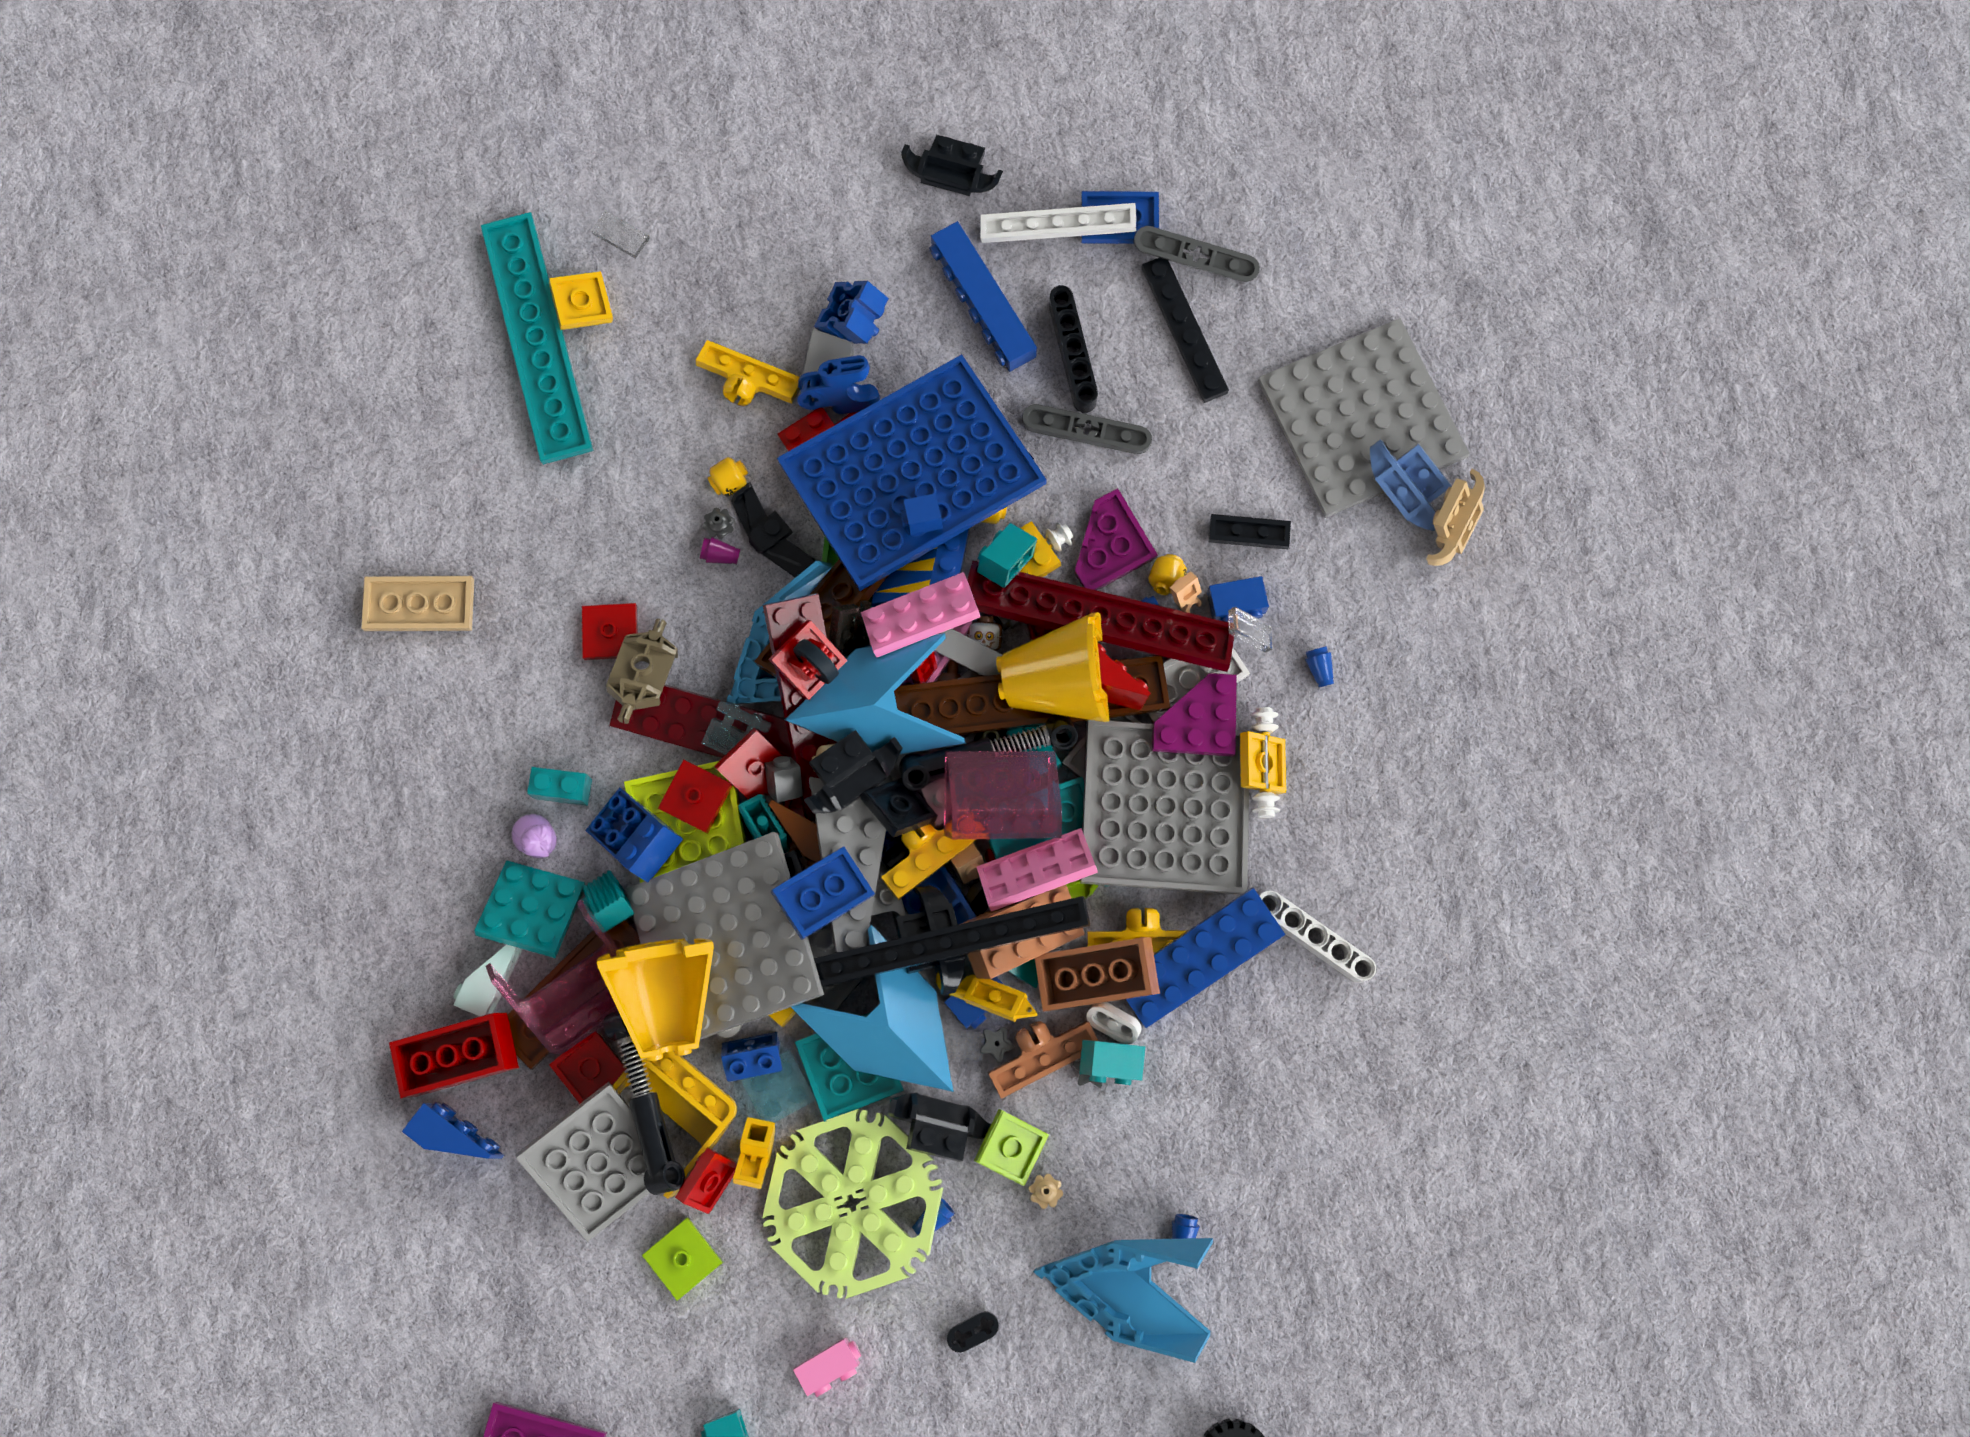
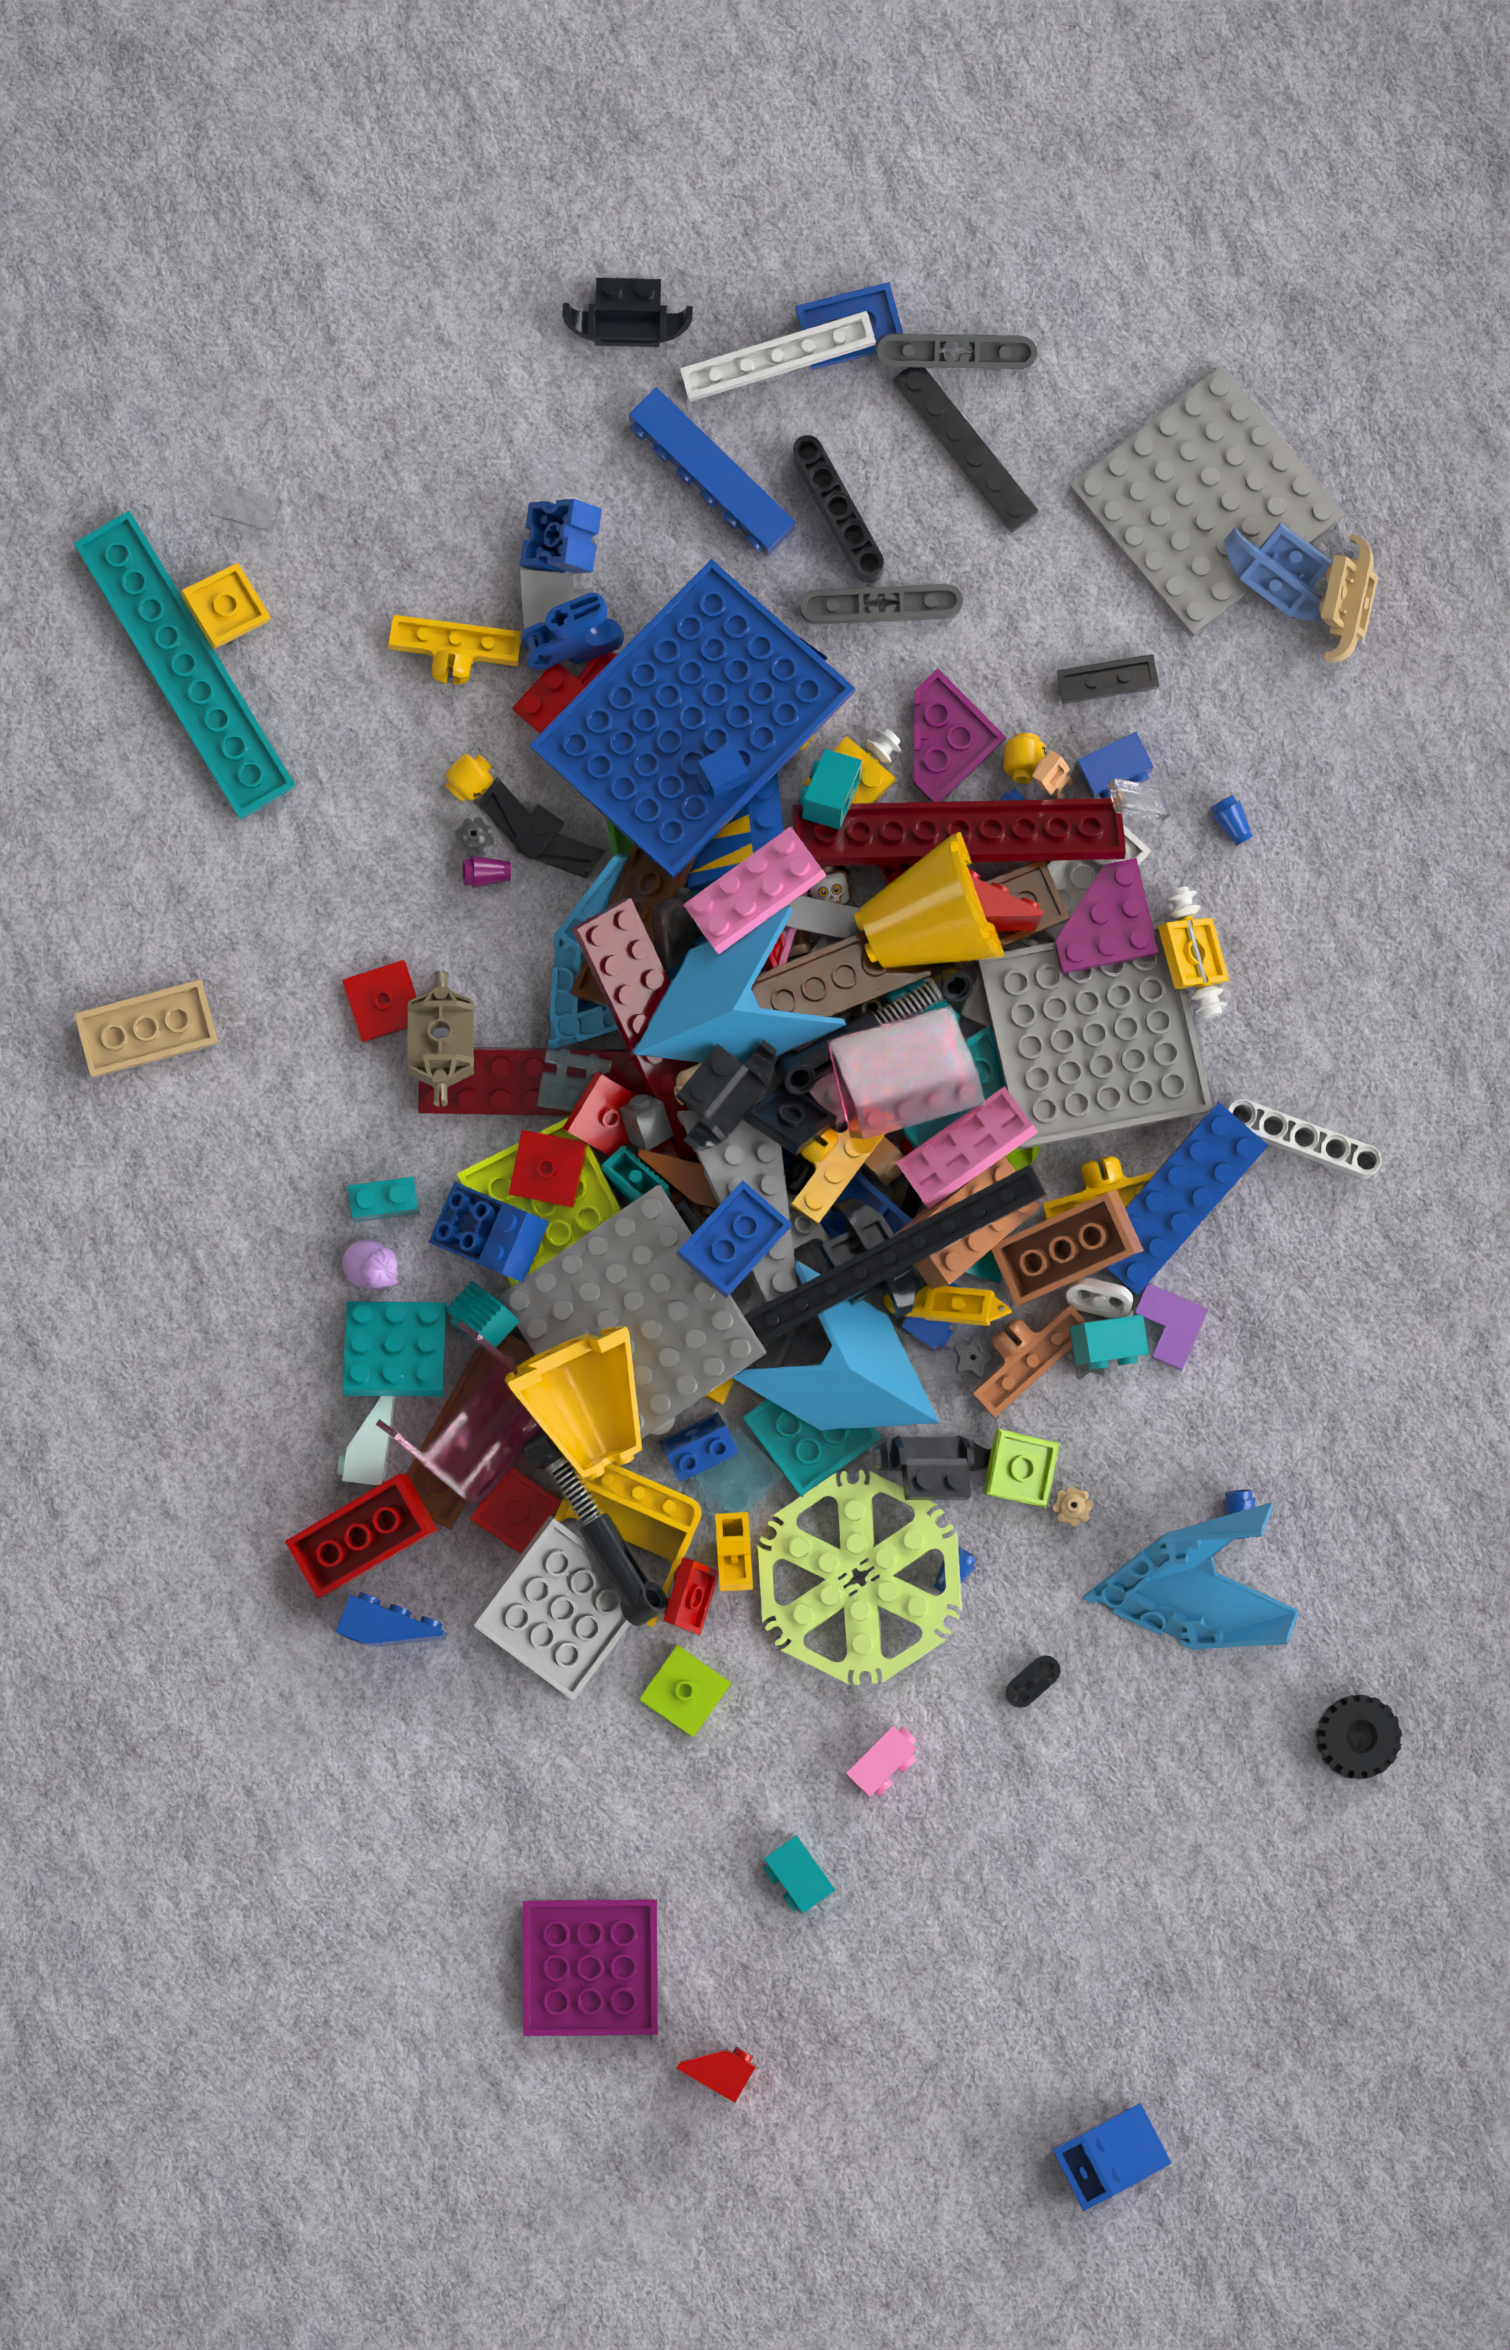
camera: 15 degrees left, 5 degrees up
(808, 660) = (642, 978): red plate -> none
(1175, 1059) = (1180, 1322): none -> medium lavender tile

